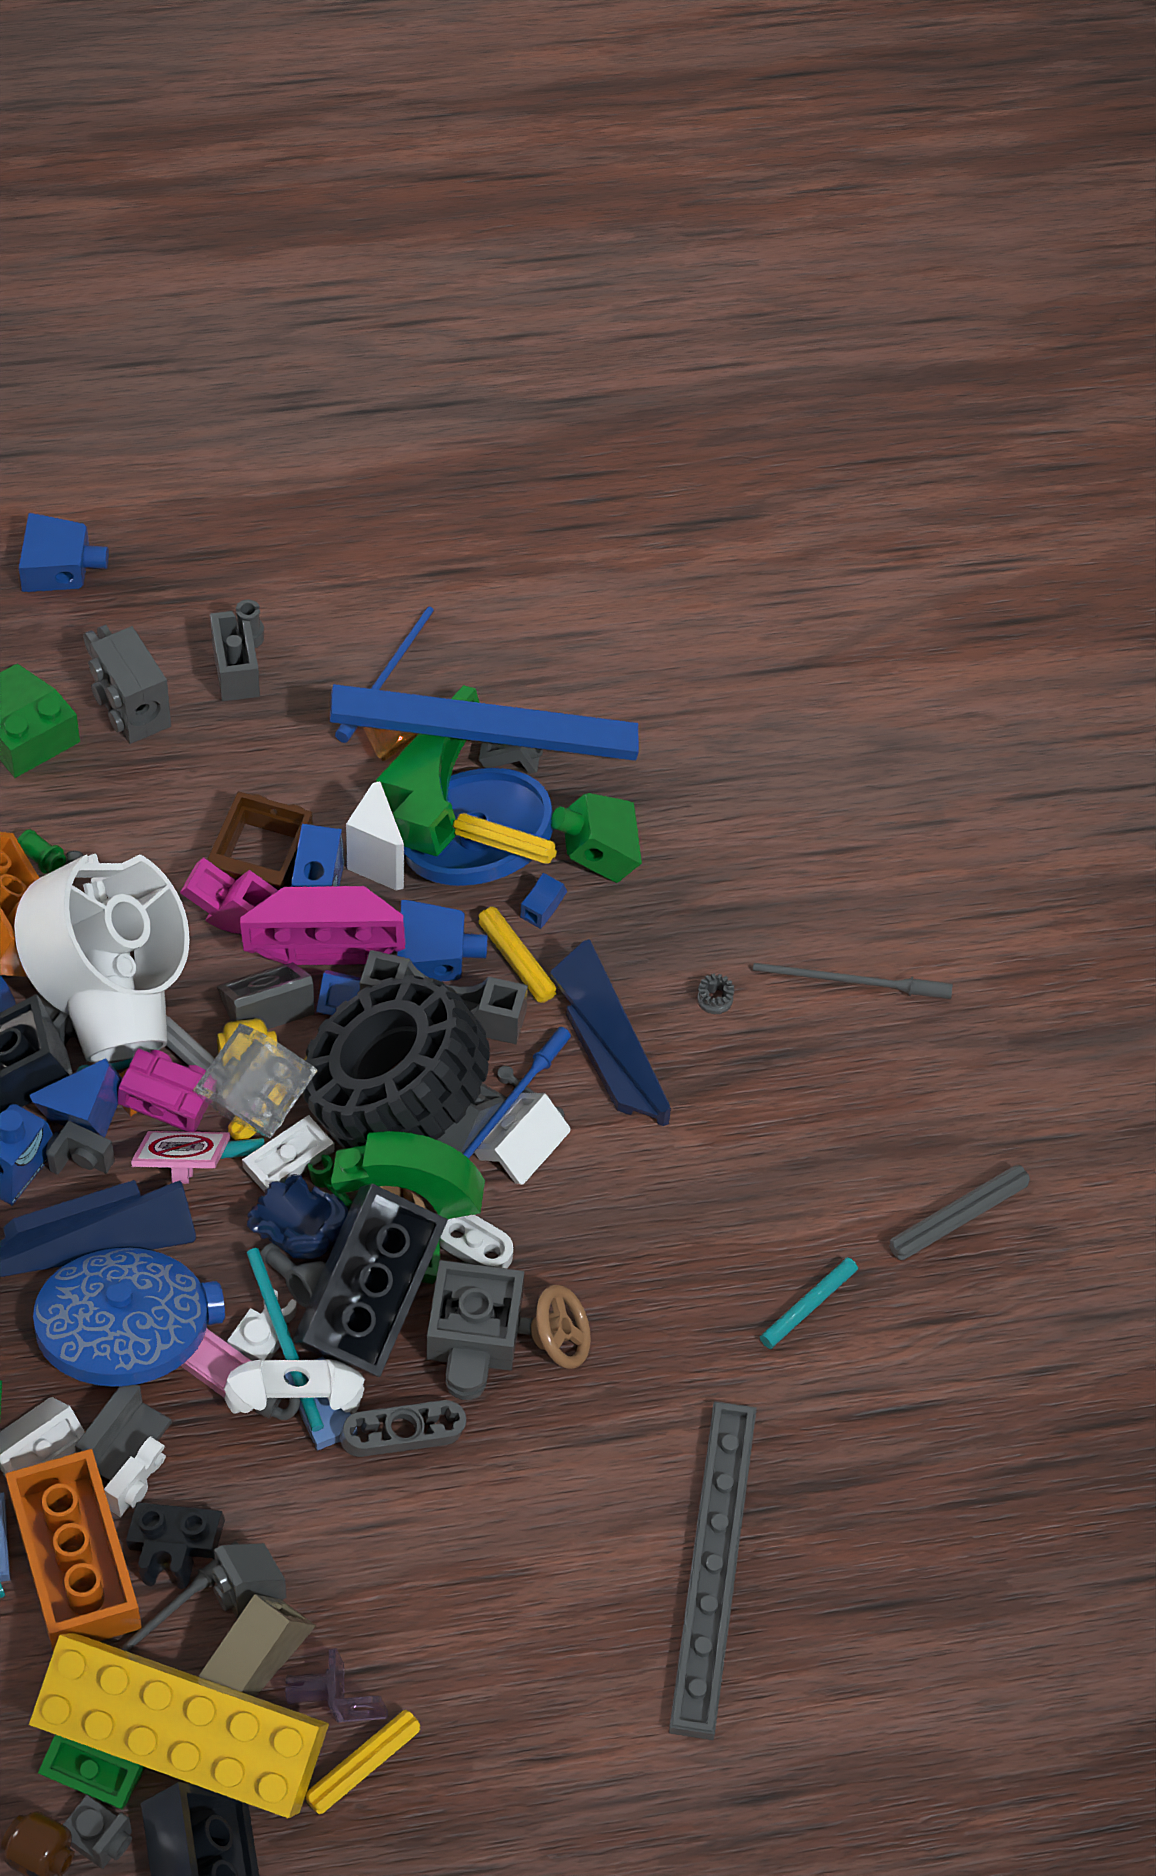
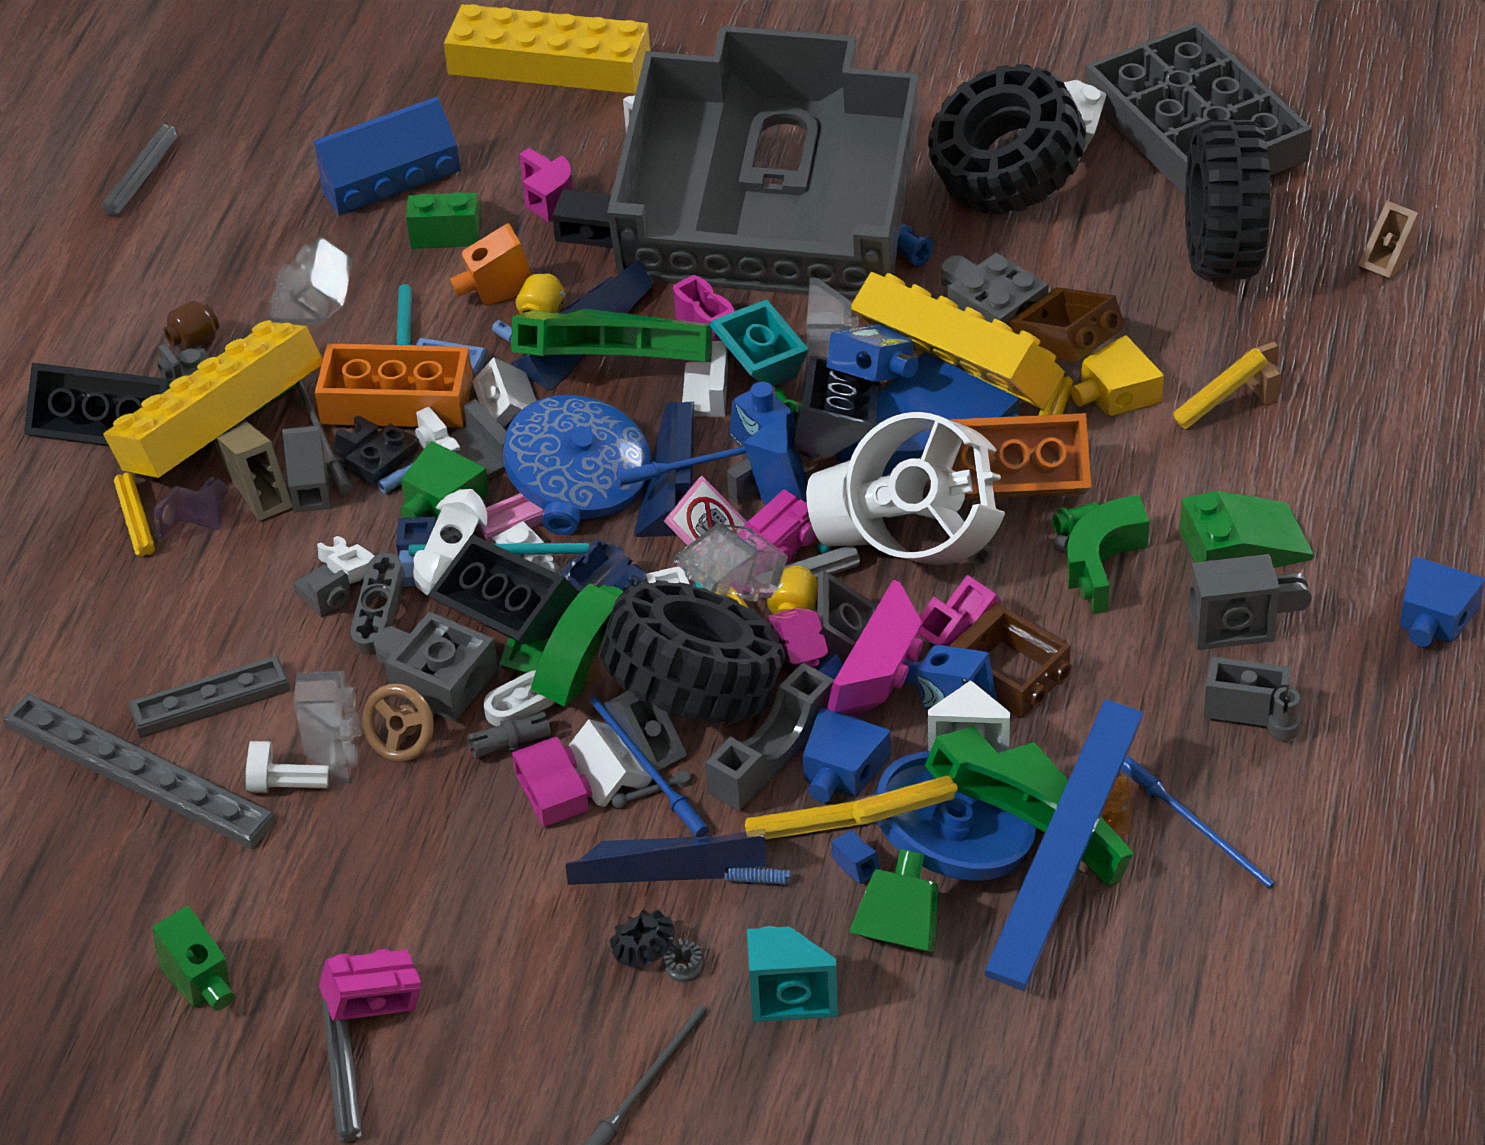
camera: 120 degrees right, 10 degrees down
(80, 826) = (1099, 534): none -> green arch
(133, 1212) = (656, 470): none -> blue piece
(190, 1498) = (393, 480): none -> medium blue pin
(207, 1442) = (435, 476): none -> green torso
(288, 1436) = (413, 531): none -> dark blue plate
(313, 1003) = (800, 636): none -> dark pink brick
(352, 1484) = (351, 559): none -> white plate
(399, 1497) = (324, 590): none -> dark grey bracket
(525, 1232) = (508, 735): none -> dark grey pin
(568, 1169) = (551, 781): none -> dark pink brick
(589, 1546) = (209, 696): none -> dark grey tile
(600, 1378) = (327, 721): none -> clear slope
(672, 1432) = (263, 774): none -> white piece
(703, 1044) = (651, 946): none -> black gear
(718, 890) = (790, 976): none -> teal slope
(808, 1303) = (322, 912): teal bar -> none
(879, 1209) = (369, 984): none -> dark pink brick
(936, 1358) = (192, 960): none -> green torso

